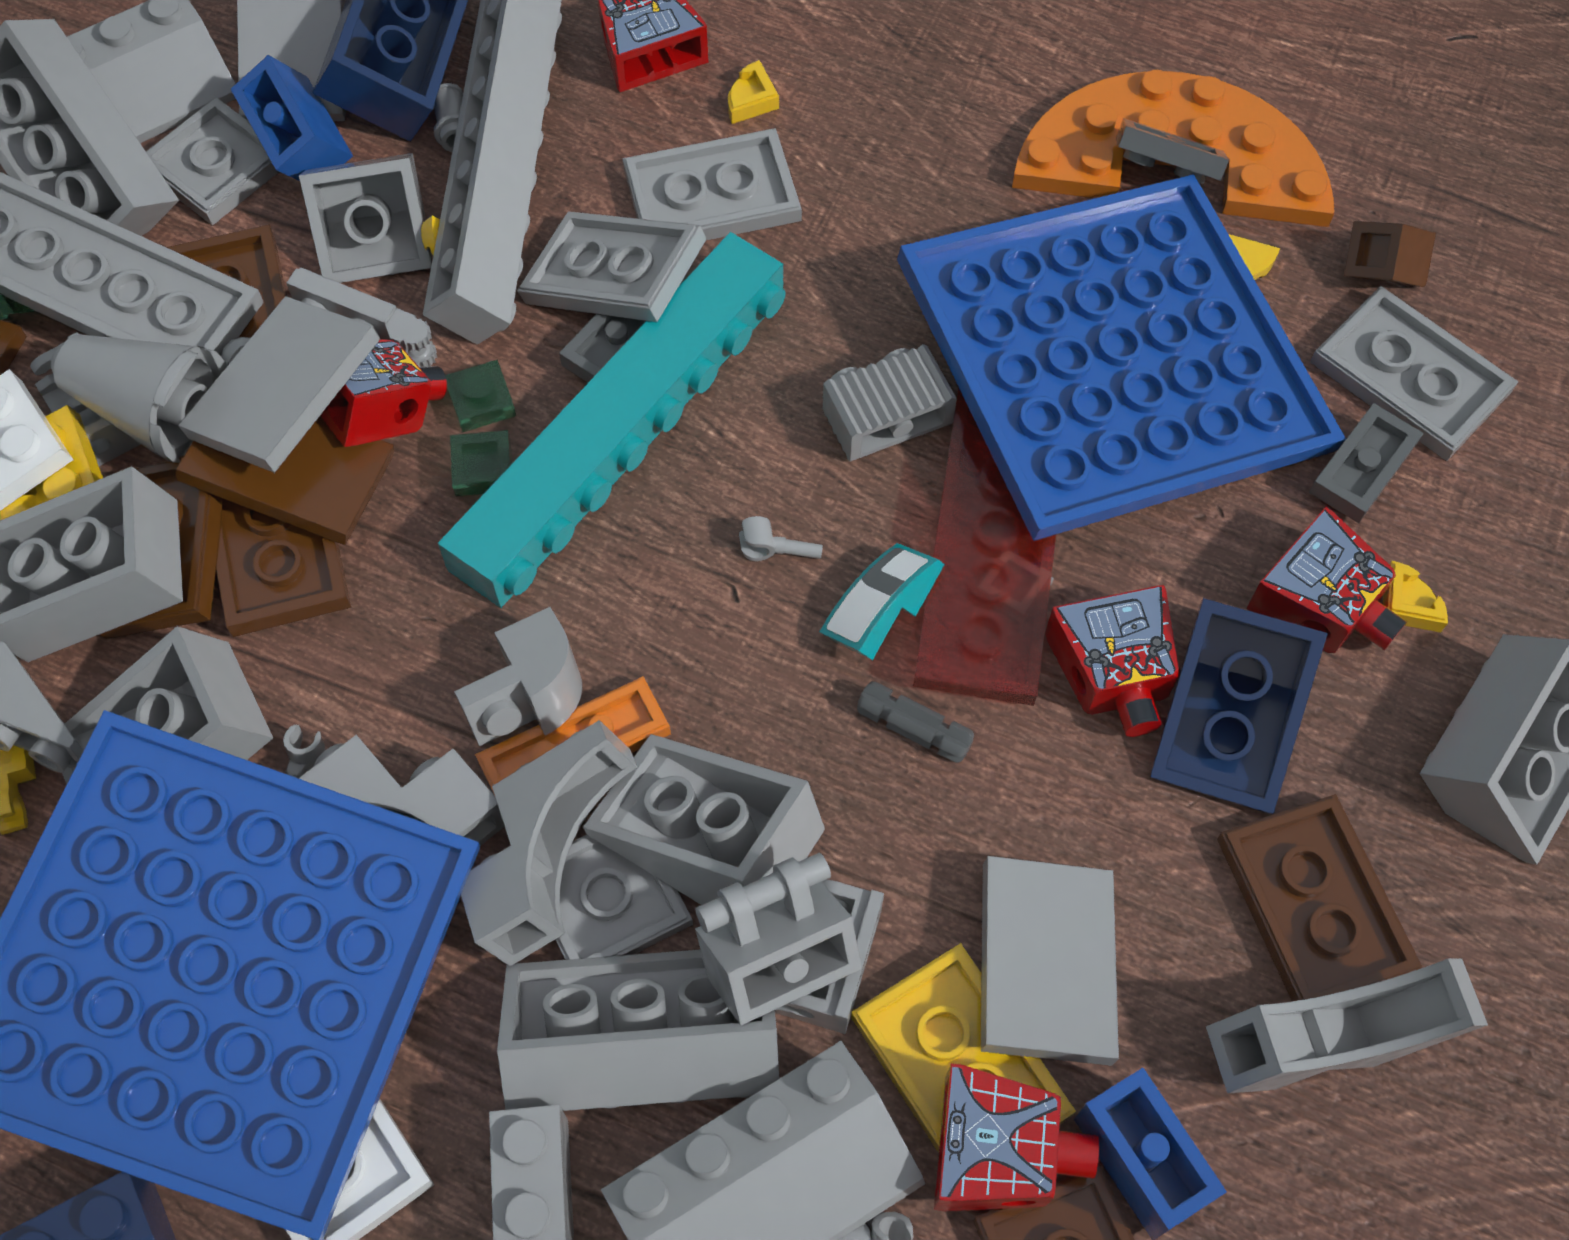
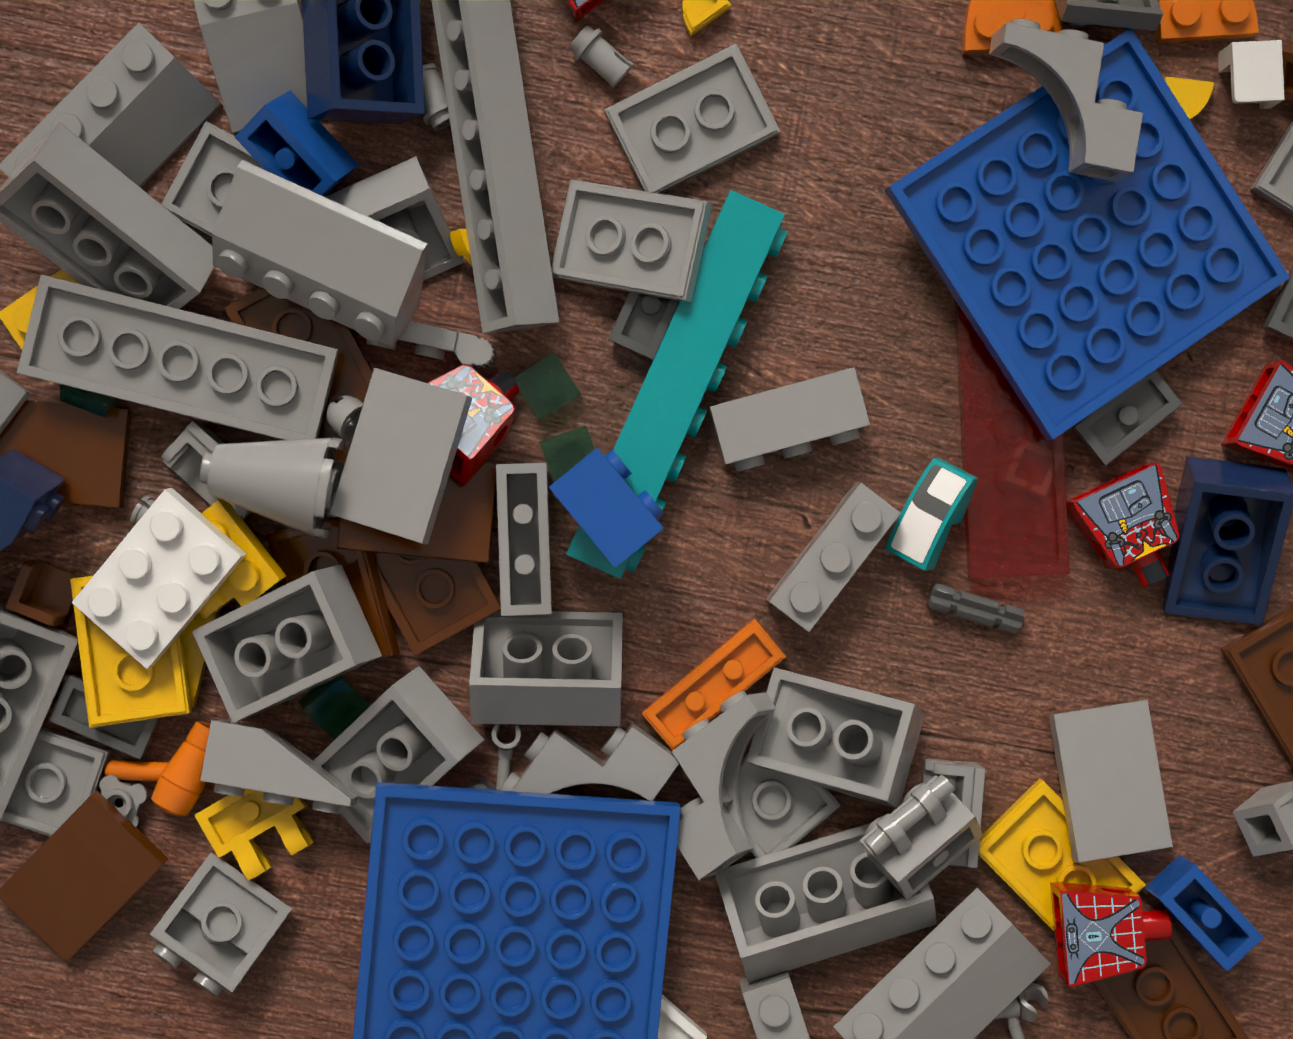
camera: 15 degrees left, 25 degrees up
(107, 657) = (334, 705): none -> clear green plate
(273, 191) = (319, 254): none -> light grey slope
(372, 678) = (547, 669): none -> light grey slope
(395, 524) = (523, 539): none -> light grey brick
(495, 471) = (607, 506): none -> blue brick
(536, 684) = (681, 646): light grey brick -> none
(625, 105) = (600, 55): none -> light grey pin
(738, 468) = (789, 419): none -> light grey brick
(751, 619) = (832, 556): none -> light grey brick
(759, 544) = (817, 475): light grey hand -> none
(888, 401) = (900, 323): light grey brick -> none
(1112, 175) = (1068, 65): none -> light grey arch
(1134, 546) = (1126, 418): none -> dark grey plate
(1325, 236) = (1254, 71): none -> white panel

